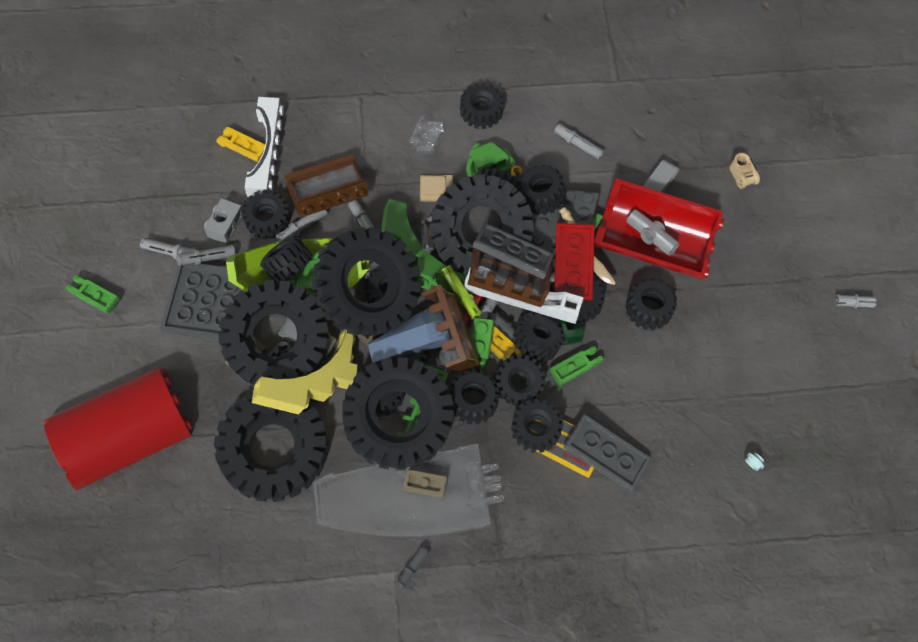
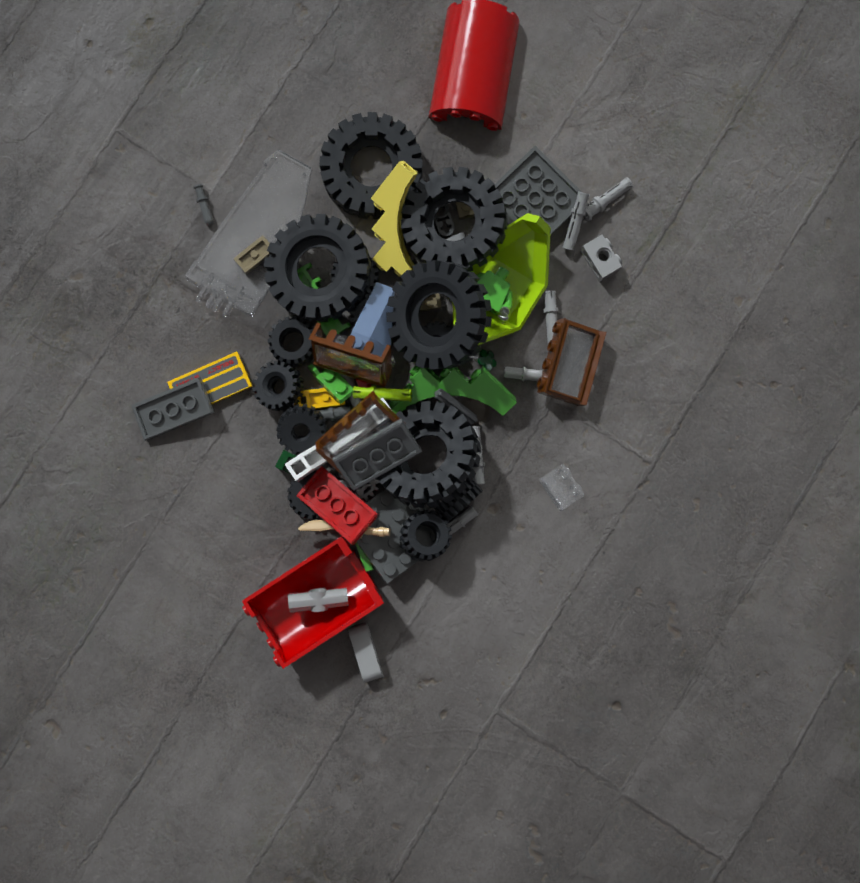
camera: 130 degrees right, 20 degrees up
(93, 294) = (606, 115): bright green hinge -> none
(241, 143) = (670, 324): yellow plate -> none
(260, 178) = (684, 367): white arch -> none
(260, 204) = (585, 282): black tyre -> none
(286, 259) = (518, 276): black tyre -> none
(433, 186) = (506, 459): tan piece -> none
(481, 95) = (572, 556): black tyre -> none
(490, 157) = (494, 518): bright green torso -> none
(541, 412) = (217, 367): black tyre -> none
(575, 366) = (259, 442): bright green hinge -> none
(577, 140) = (461, 617): light grey pin -> none
(651, 290) = (244, 546): black tyre -> none
(745, 173) = (317, 737): tan piece -> none
(754, 461) = (79, 516): light aqua plate -> none
(855, 301) = (135, 722): light grey axle -> none

